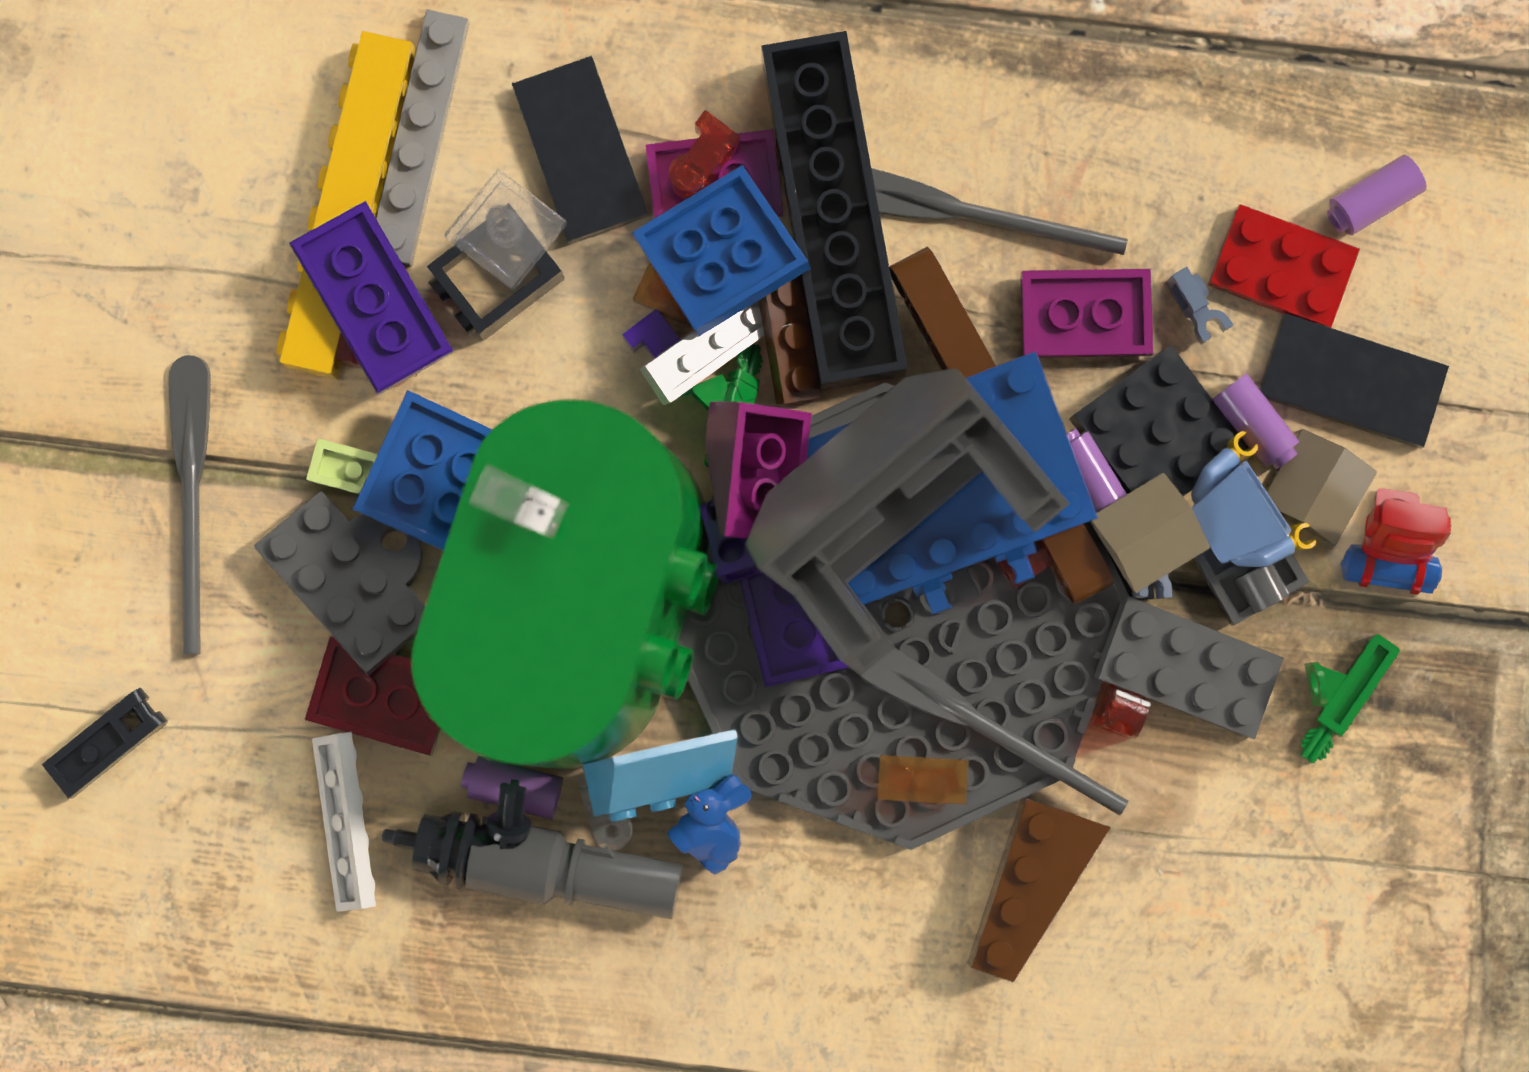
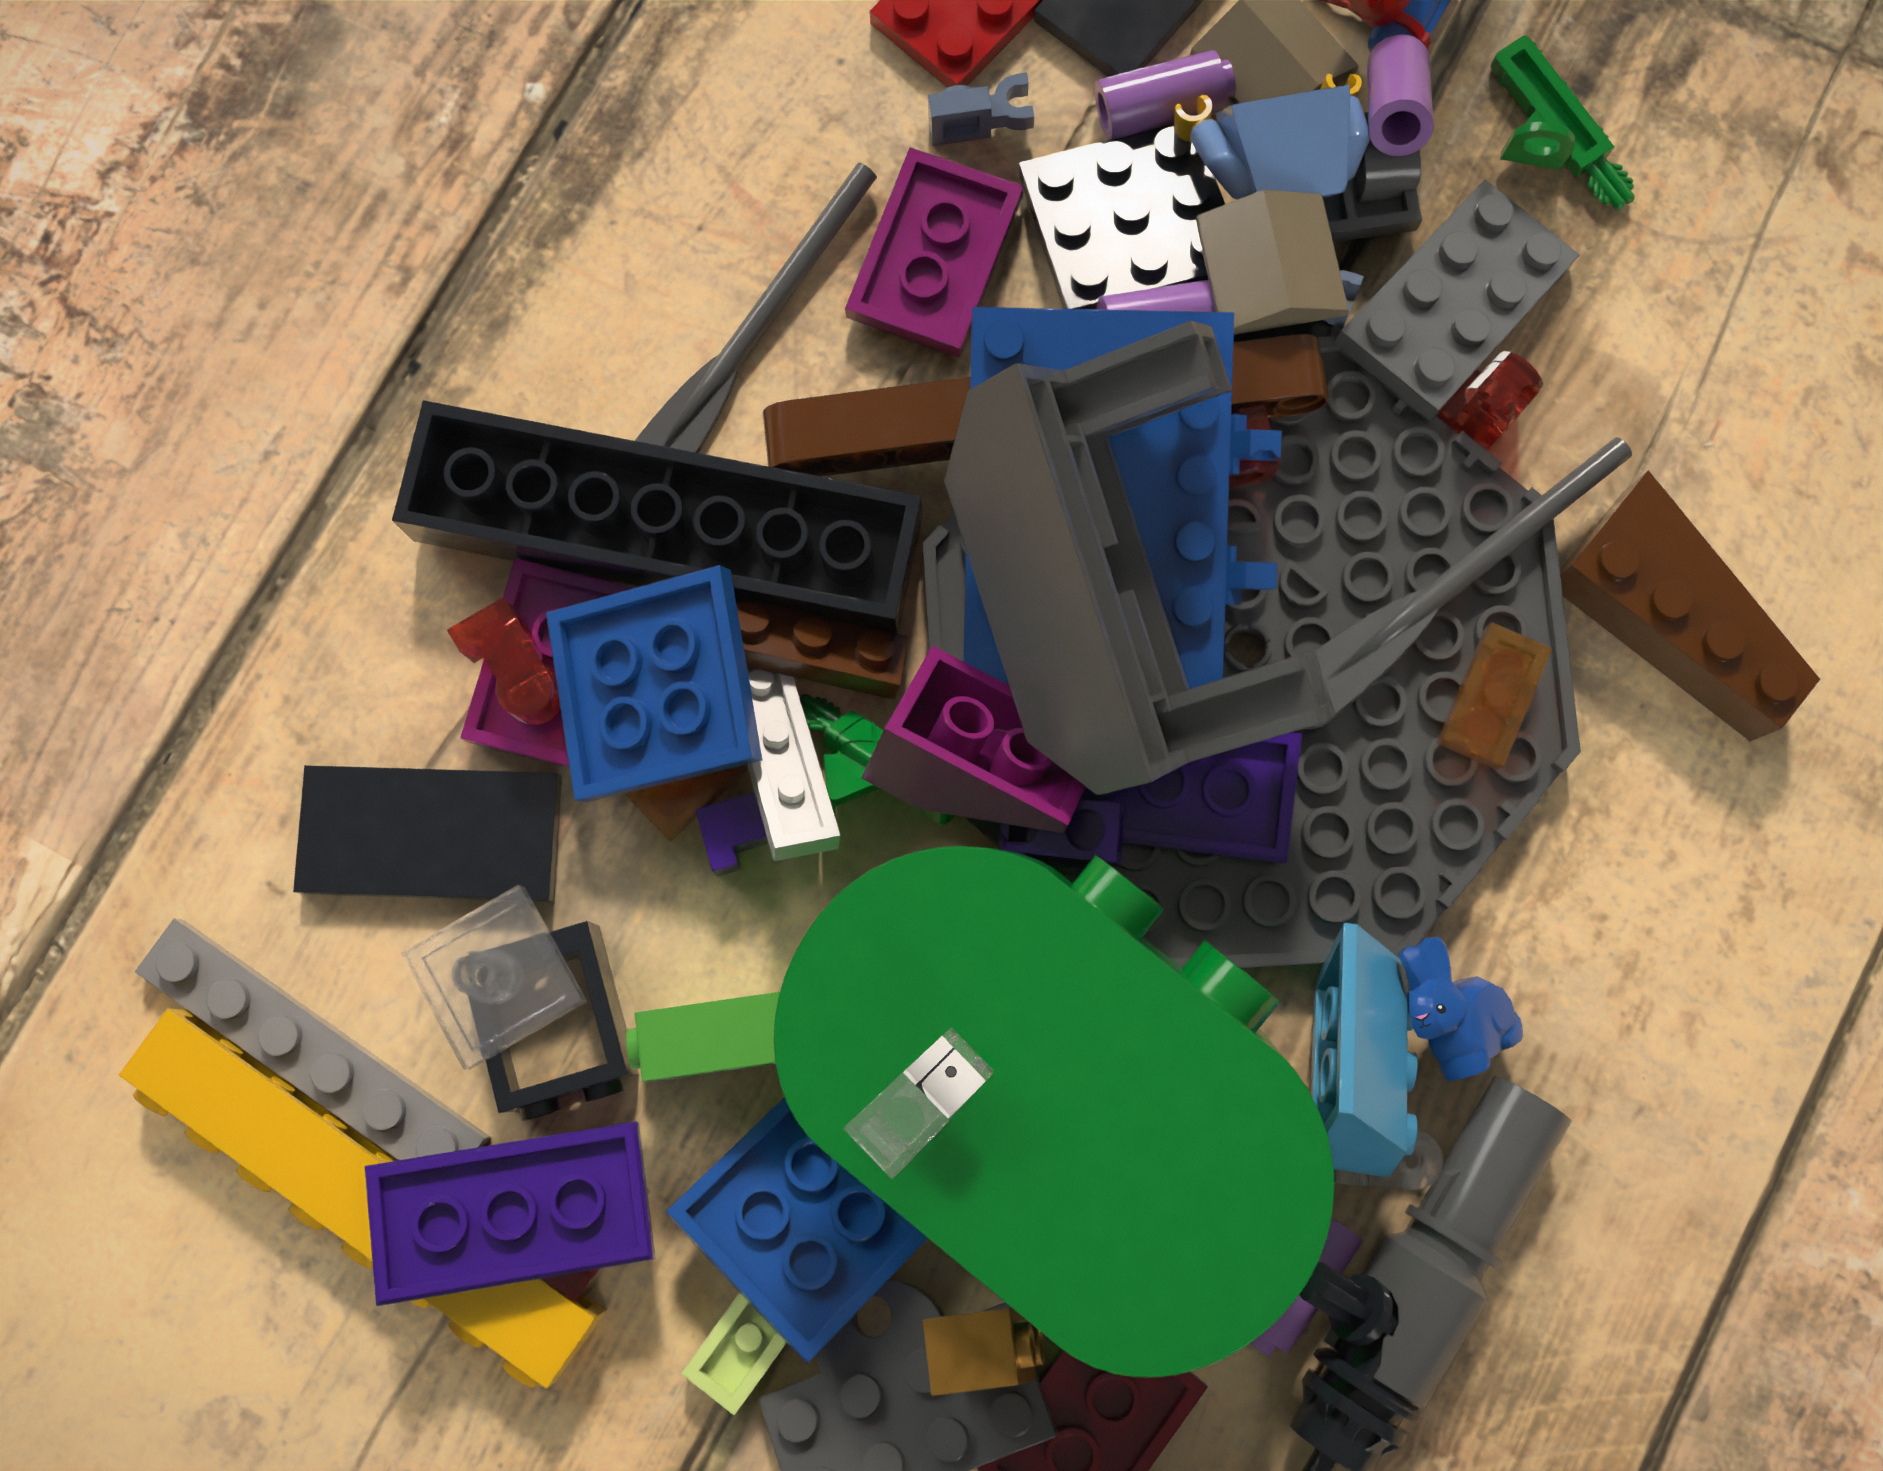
camera: 65 degrees left, 5 degrees down
(396, 603) = (981, 1351): none -> pearl gold brick
(515, 366) = (703, 1038): none -> bright green brick
(1308, 576) = (1399, 95): none -> medium lavender brick

